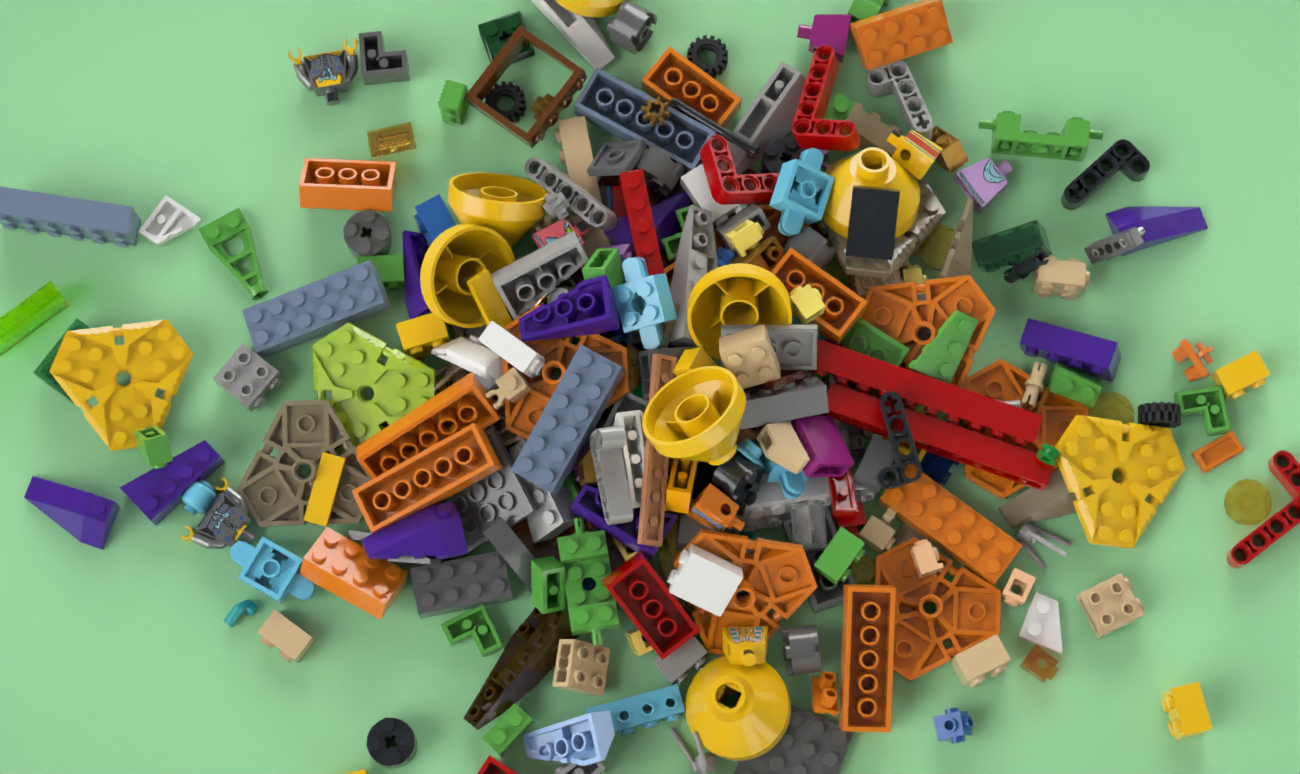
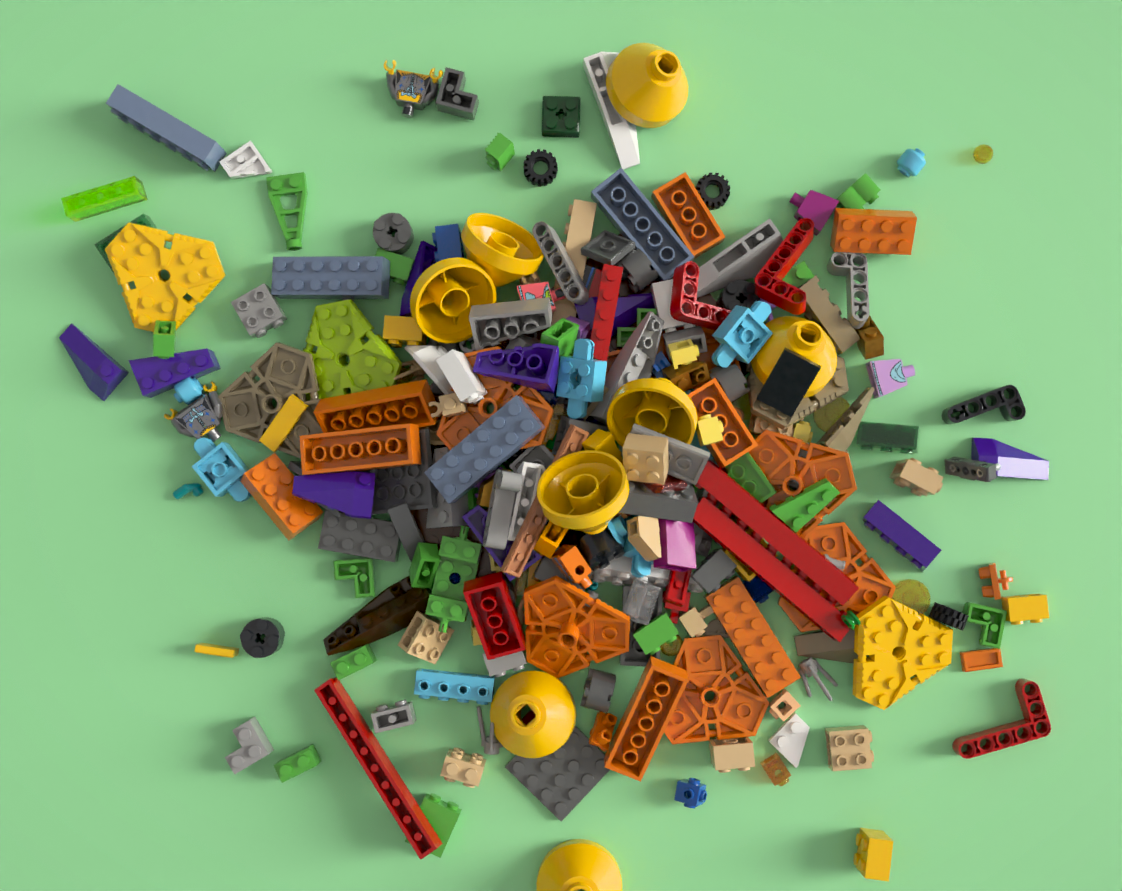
camera: 25 degrees right, 10 degrees up
(285, 636) = (214, 523): tan brick -> none
(348, 184) = (392, 187): orange brick -> none
(391, 140) = (441, 163): clear yellow panel -> none
(488, 299) = (461, 327): yellow tile -> none
(498, 67) = (544, 137): reddish brown window -> none
(541, 104) = (569, 183): pearl gold gear -> none
(556, 205) = (544, 270): light grey gear -> none
(574, 741) = (399, 693): light blue wedge -> none
(631, 27) = (662, 144): dark grey brick -> none
(658, 106) = (656, 218): pearl gold gear -> none
(704, 579) = (543, 615): white brick -> none
(745, 644) = (556, 672): yellow torso -> none
(752, 150) = (697, 255): black bar -> none
(894, 439) = (735, 563): black beam -> none
(914, 152) = (844, 335): yellow torso -> none
(925, 558) = (721, 657): light nougat brick -> none
(1010, 141) = (970, 372): bright green brick -> none
(1022, 269) = (890, 459): black pin -> none
(1034, 385) = (861, 555): tan pin -> none
(1075, 384) = (893, 566): bright green brick -> none
(1247, 502) = (988, 708): clear yellow tile -> none

